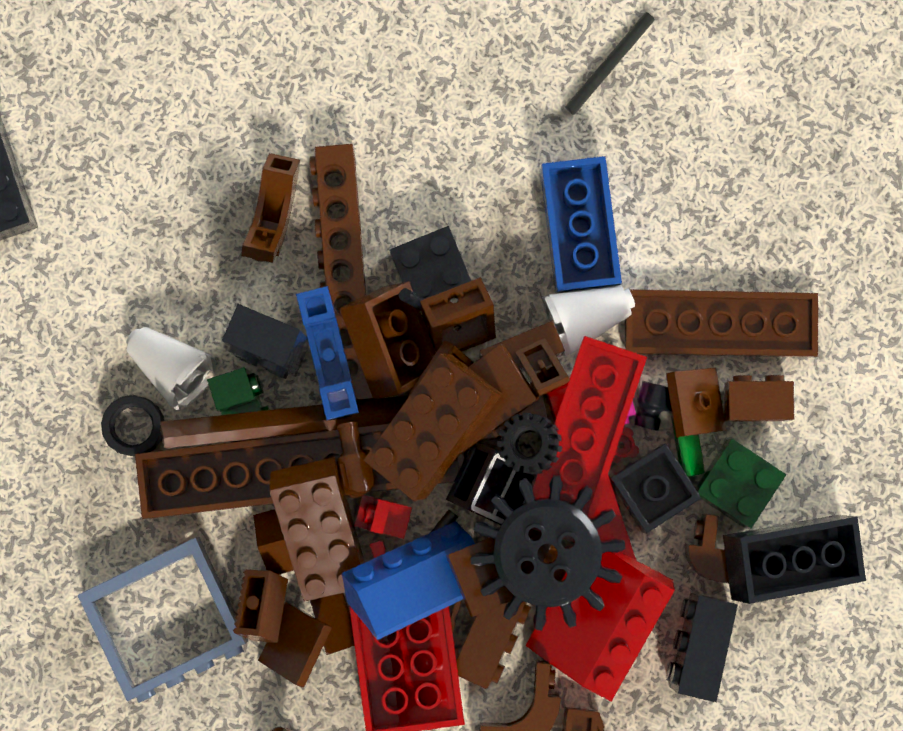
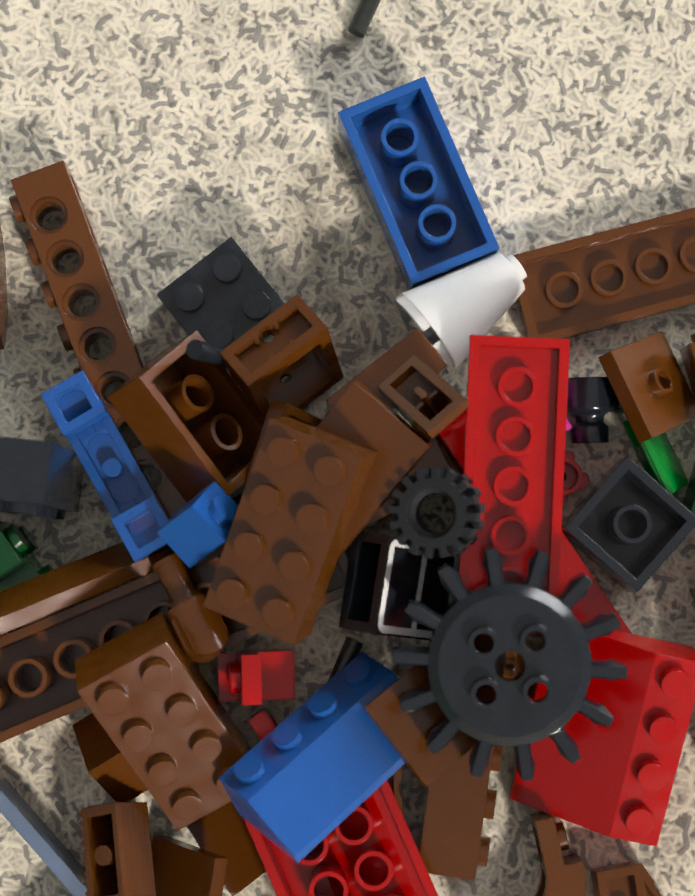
camera: 20 degrees left, 0 degrees up
(376, 408) = (200, 525): none -> blue brick

